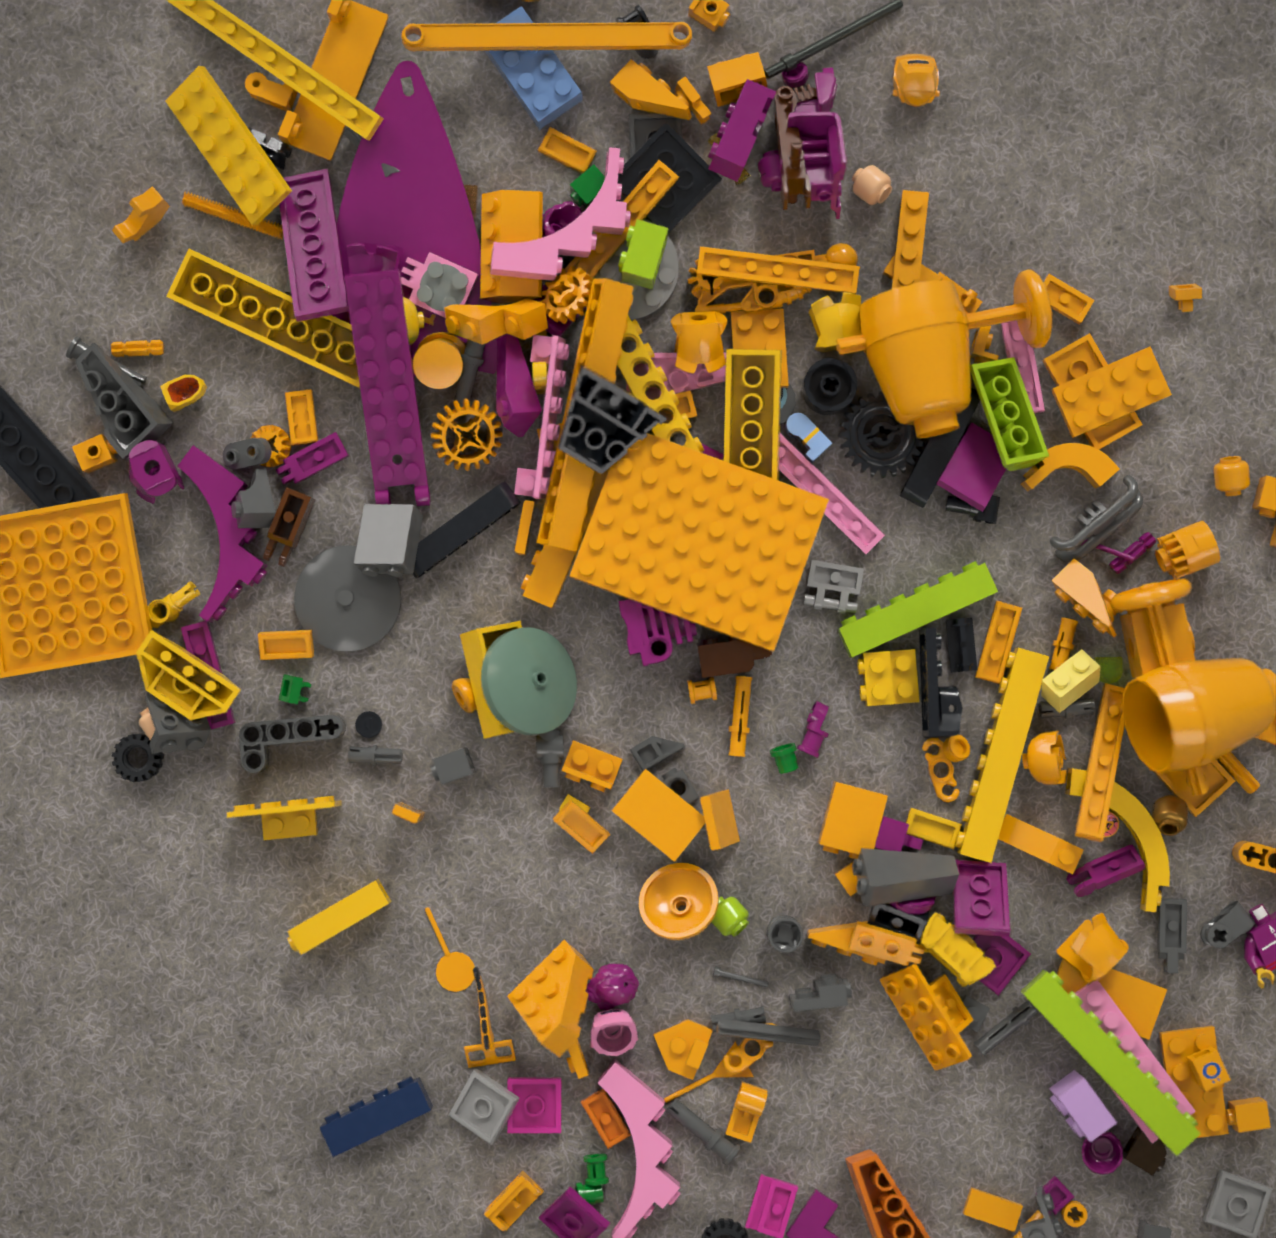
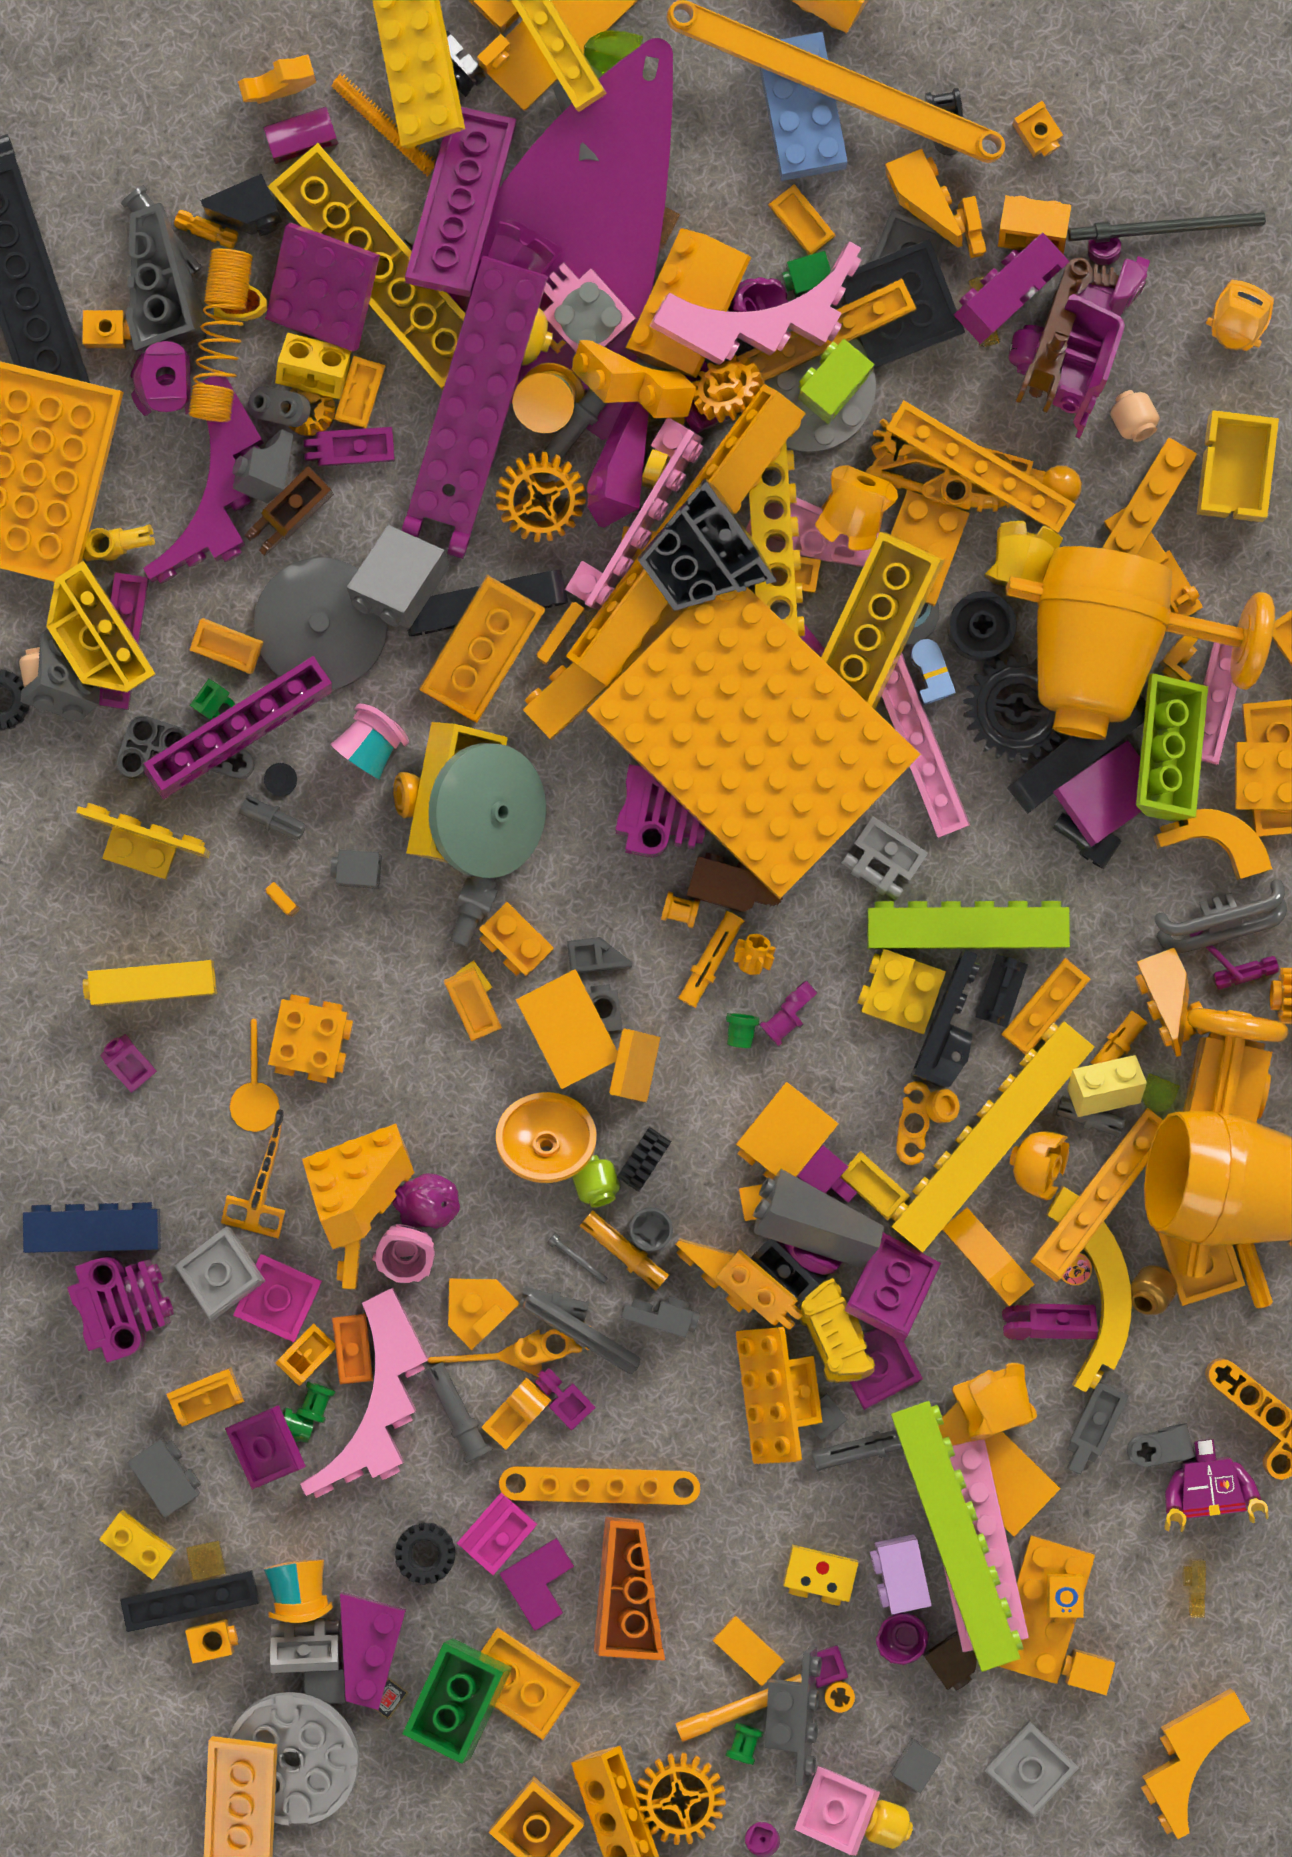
camera: 15 degrees right, 0 degrees up
(156, 319) = (244, 207): none -> black slope
(170, 384) = (225, 289): none -> light orange piece
(171, 251) = (299, 134): none -> magenta brick
(239, 352) = (322, 286): none -> magenta plate
(258, 412) = (313, 366): none -> yellow brick
(319, 702) = (237, 727): none -> magenta brick
(348, 981) = (127, 1062): none -> magenta bracket
(371, 87) = (610, 47): none -> clear neon green brick
(421, 667) = (370, 740): none -> bright pink hat
(425, 1160) = (121, 1304): none -> magenta piece
(473, 564) = (482, 648): none -> light orange tile
(473, 905) = (310, 1039): none -> light orange brick
(573, 1139) = (306, 1354): none -> light orange slope
(757, 885) = (644, 1159): none -> black tyre
(770, 698) = (754, 954): none -> light orange gear
(772, 957) = (625, 1251): none -> light orange pin
(782, 1087) = (569, 1404): none -> magenta plate
(830, 1137) = (599, 1485): none -> light orange plate
(963, 188) = (1237, 466): none -> yellow piece
(1020, 1131) = (820, 1574): none -> yellow brick

